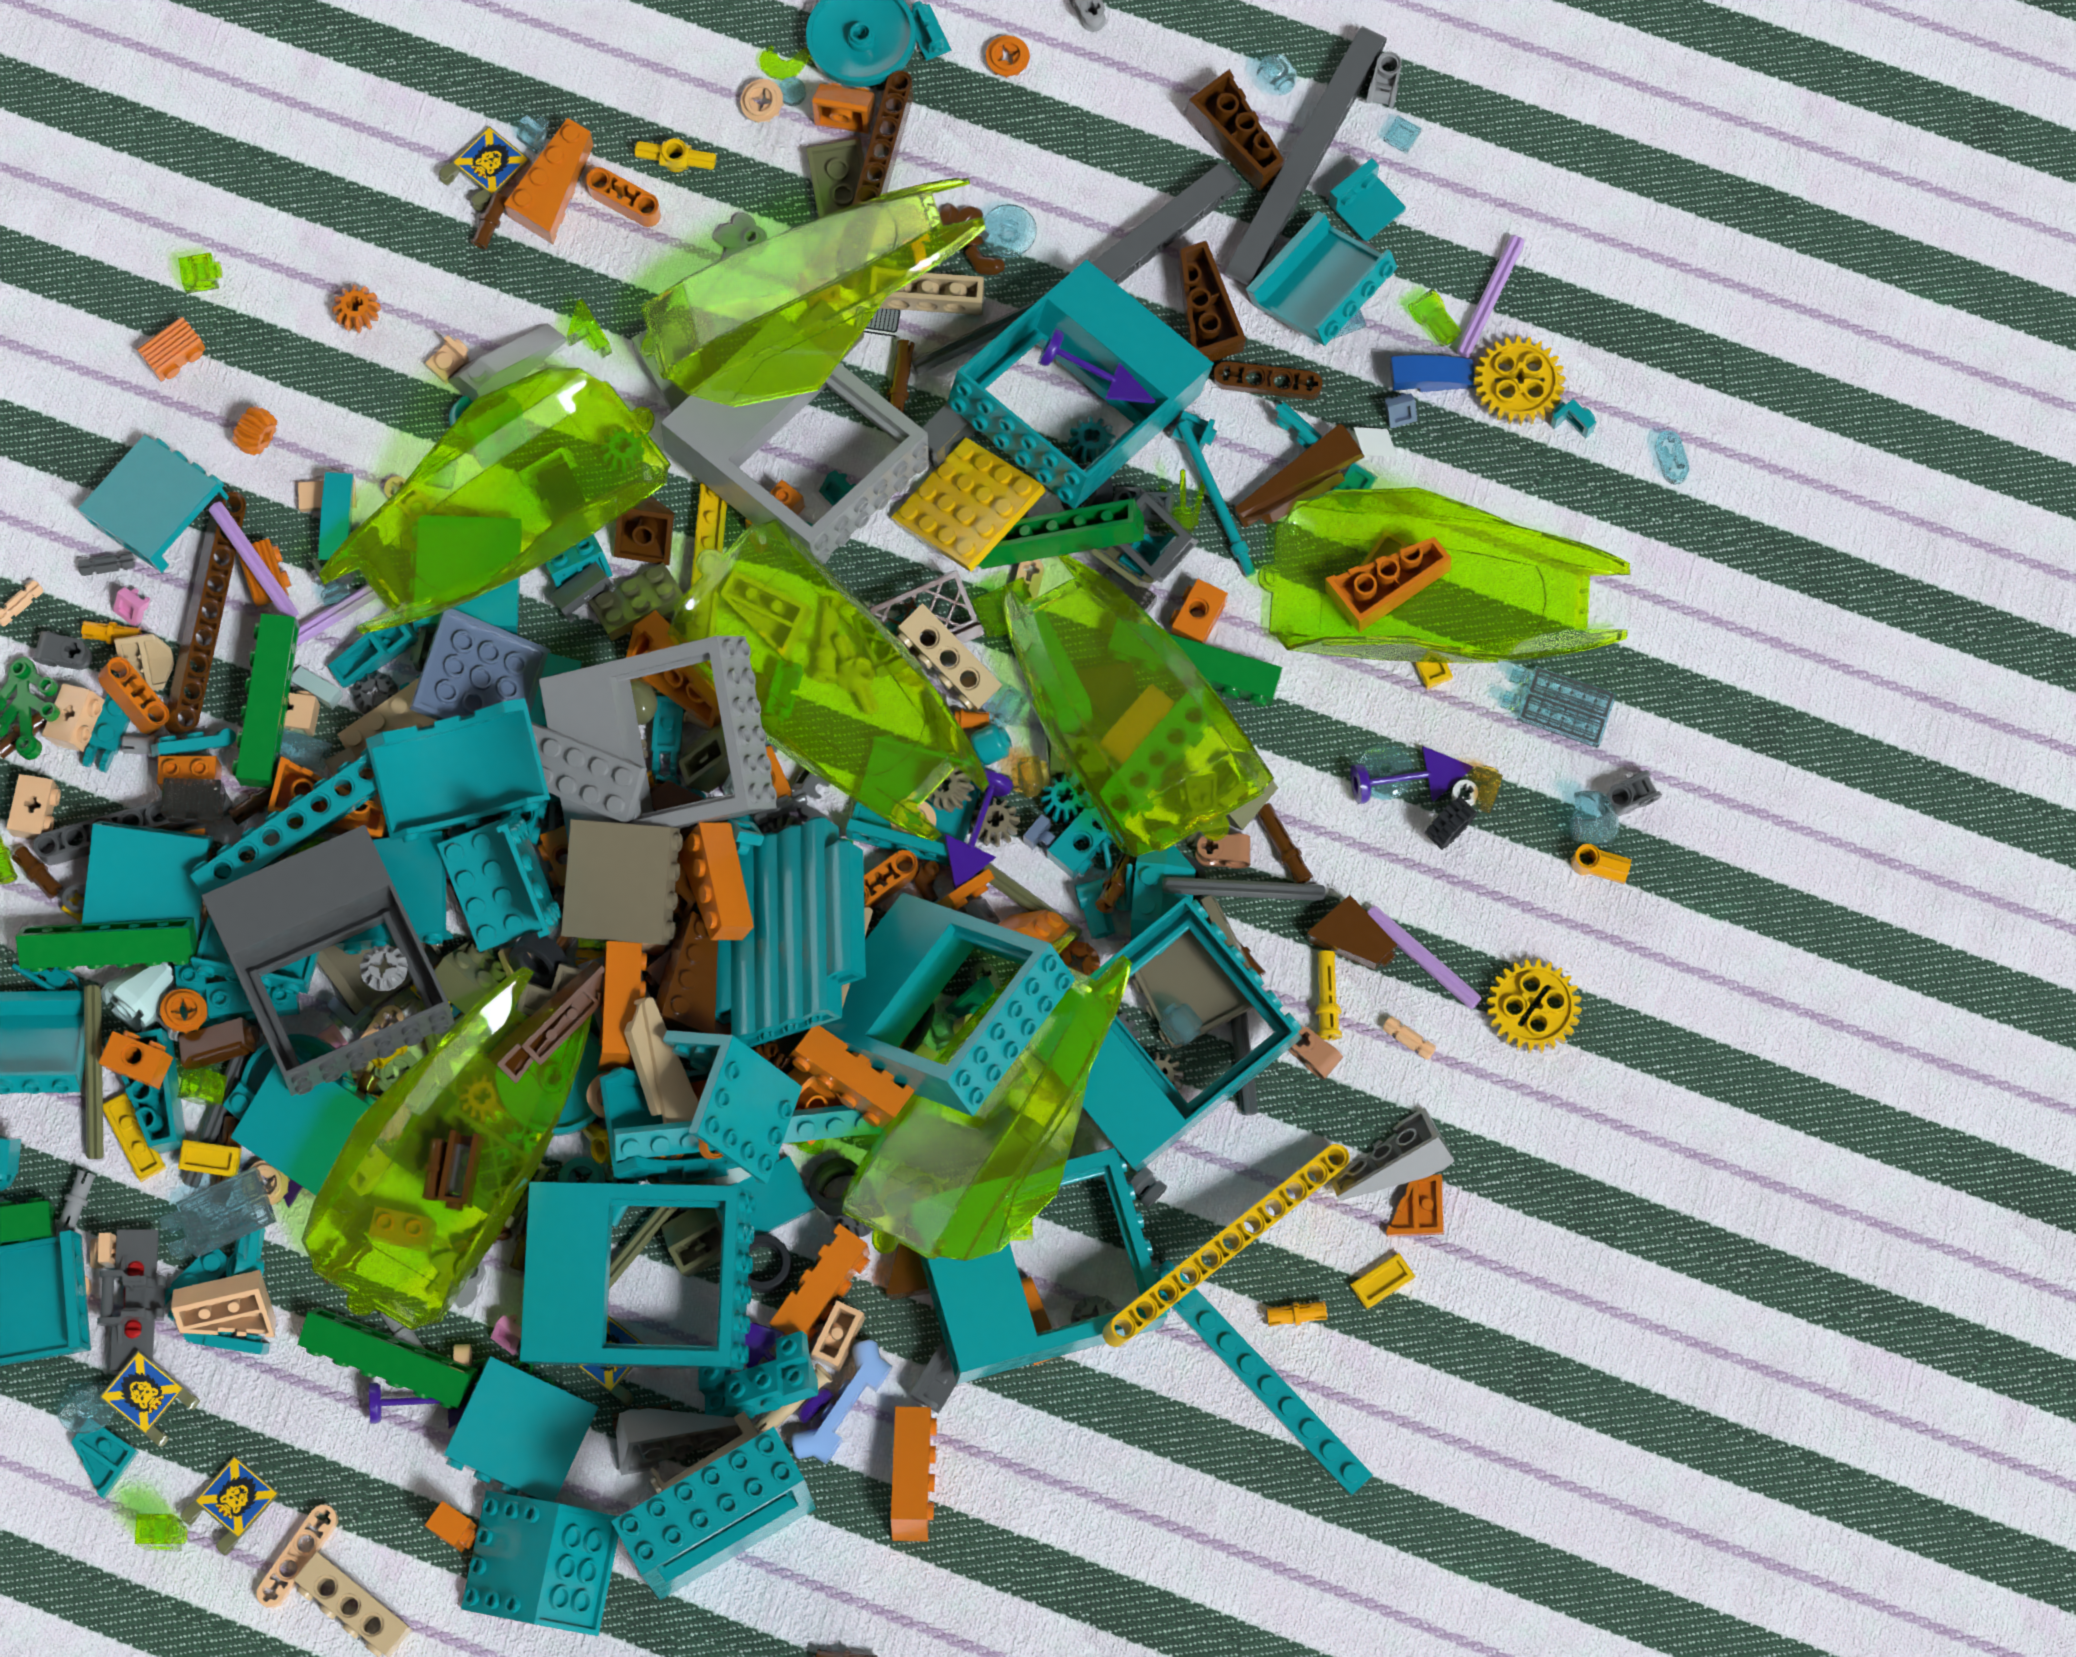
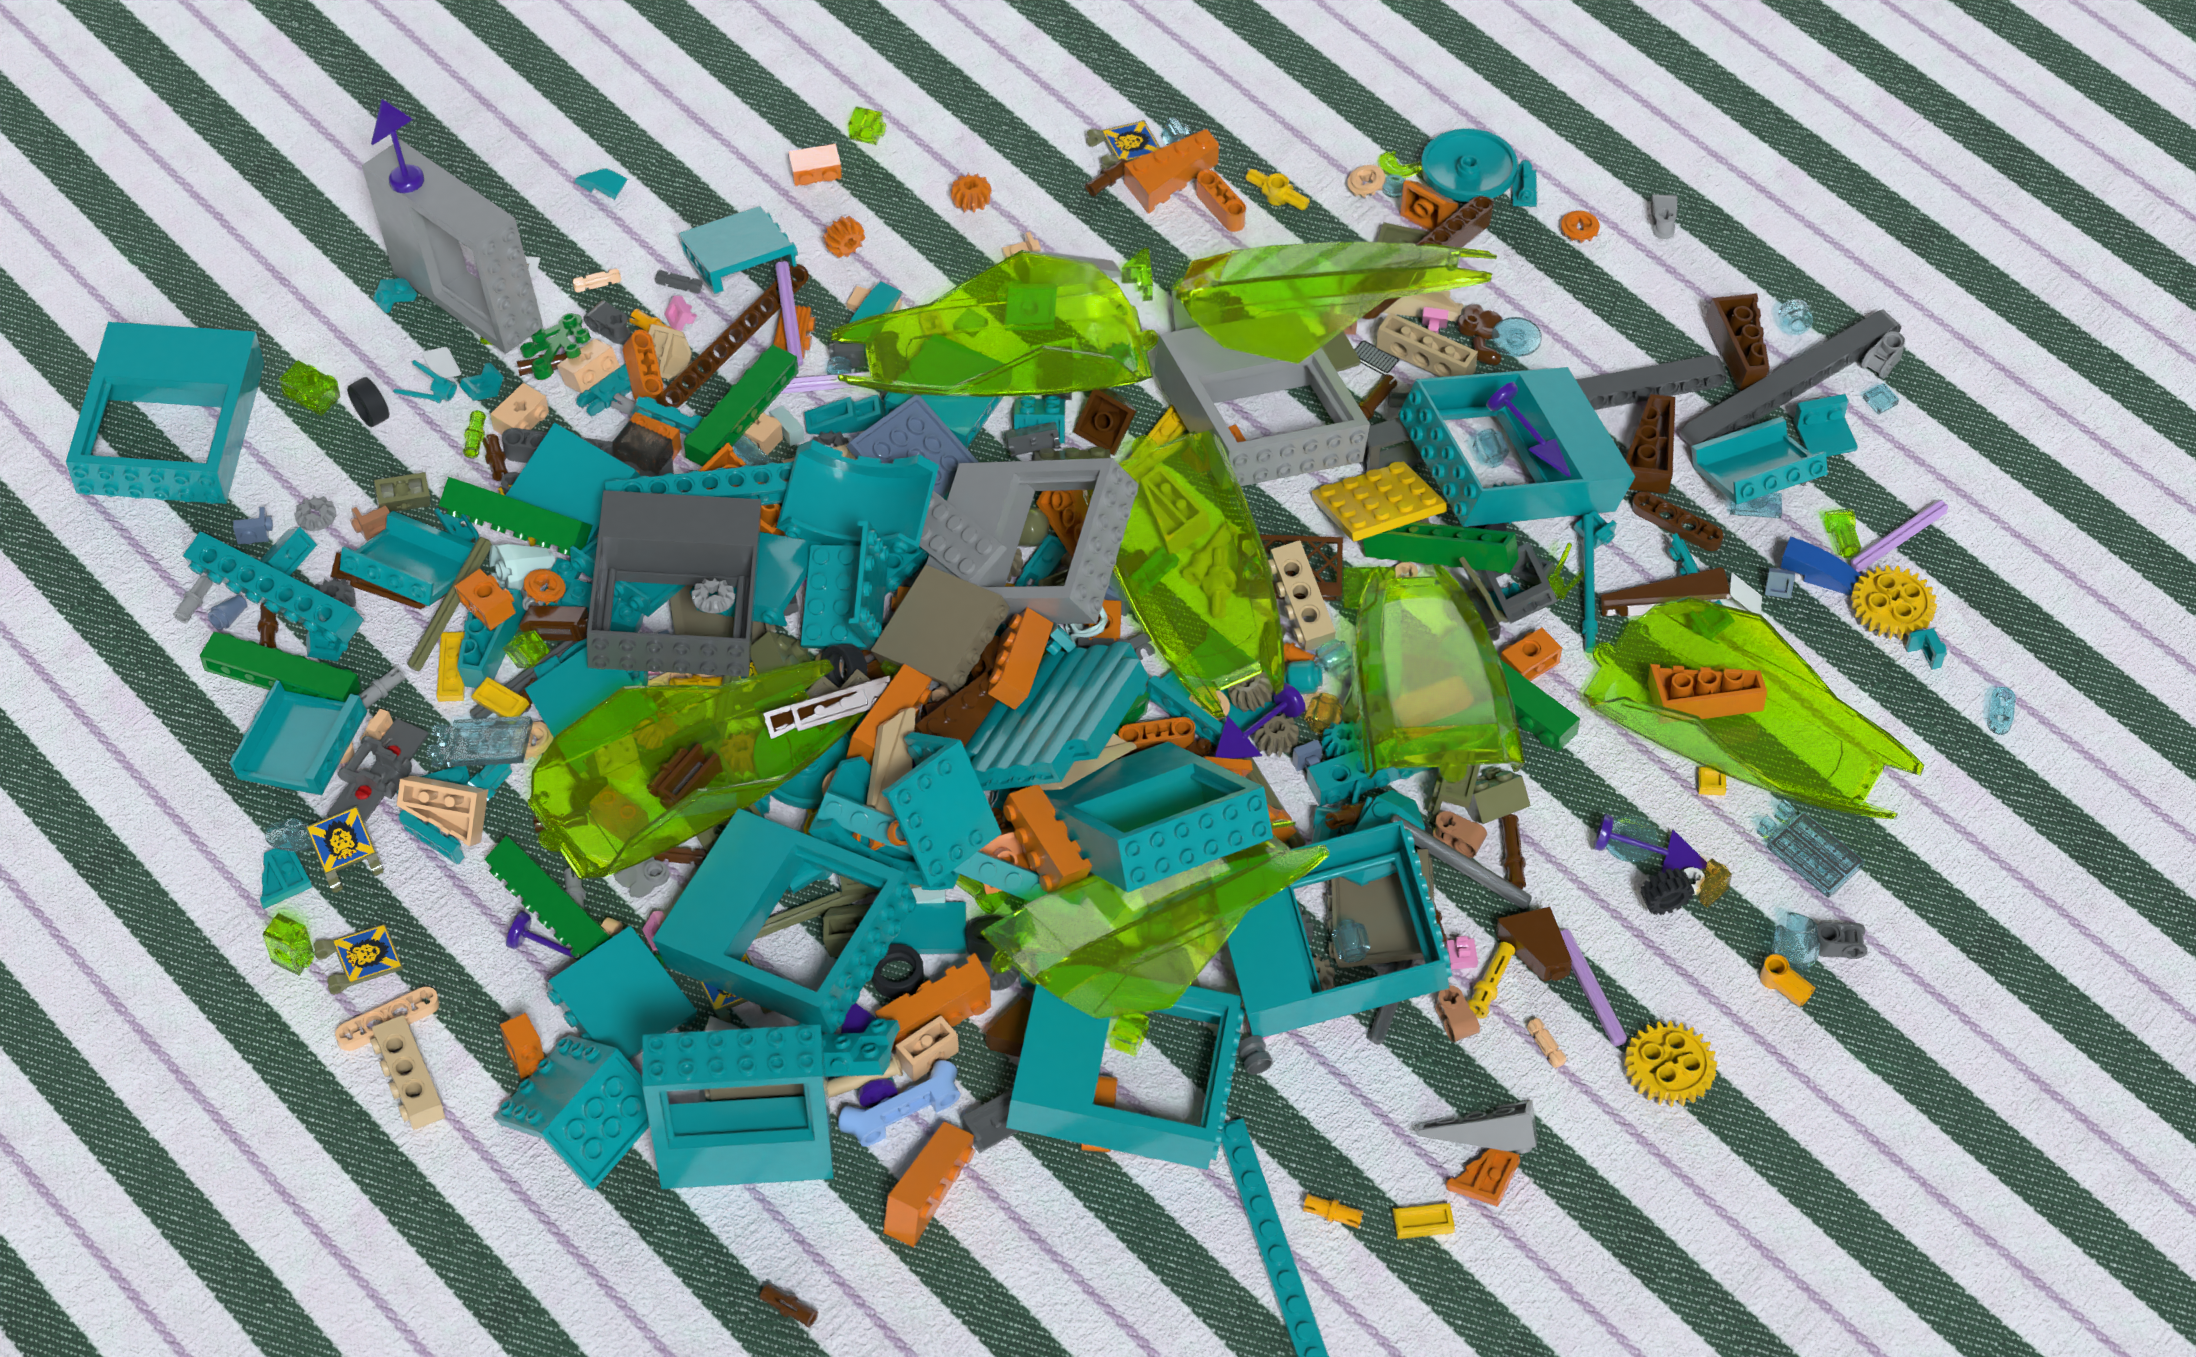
camera: 25 degrees right, 20 degrees down
(1046, 382) = (1490, 448): none -> clear light blue head
(1218, 1253) = (1286, 1118): yellow beam -> none
(1286, 979) = (1462, 953): none -> bright pink tile

